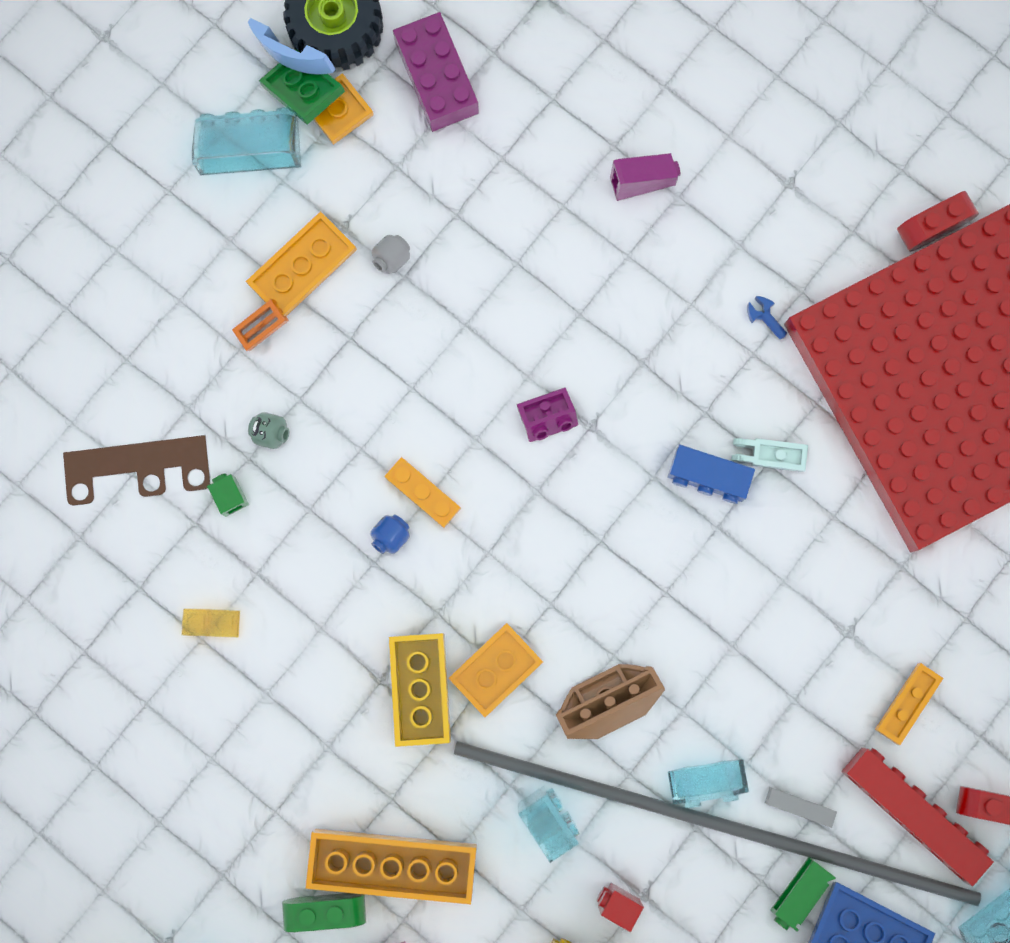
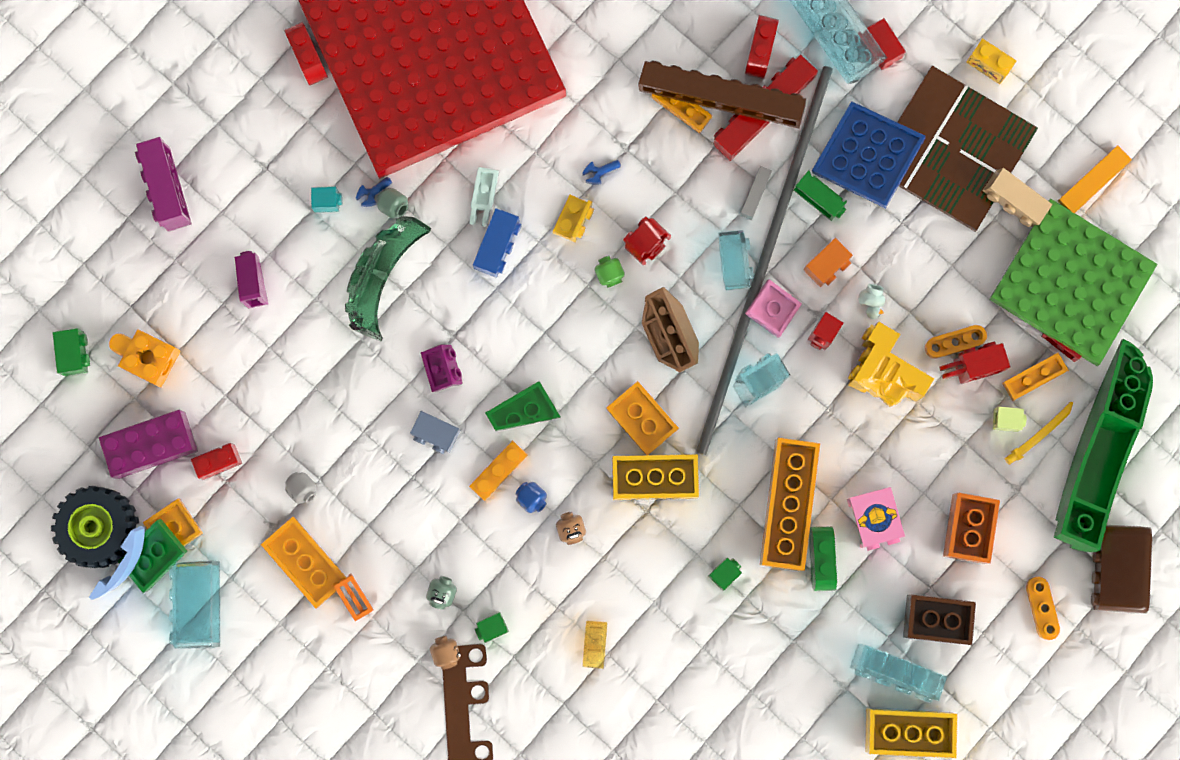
camera: 90 degrees left, 0 degrees up
(195, 439) = (445, 652): none -> medium nougat head
(302, 785) = (725, 573): none -> green brick
(352, 586) = (570, 528): none -> medium nougat head
(419, 152) = (216, 461): none -> red brick
(465, 411) = (435, 432): none -> sand blue brick
(500, 518) = (523, 409): none -> green wing
(542, 59) = (145, 356): none -> light orange brick
(647, 835) = (773, 308): none -> bright pink tile
(661, 322) = (373, 271): none -> clear green windscreen
(682, 619) = (609, 271): none -> bright green head
(713, 908) = (828, 262): none -> orange brick
(726, 665) = (646, 240): none -> red brick
(749, 569) = (573, 218): none -> yellow bracket
(752, 259) = (325, 199): none -> teal brick
(753, 341) = (392, 203): none -> sand green head
(756, 61) = (163, 184): none -> magenta brick
(814, 601) = (600, 171): none -> blue bar
(929, 758) = (722, 94): none -> reddish brown brick

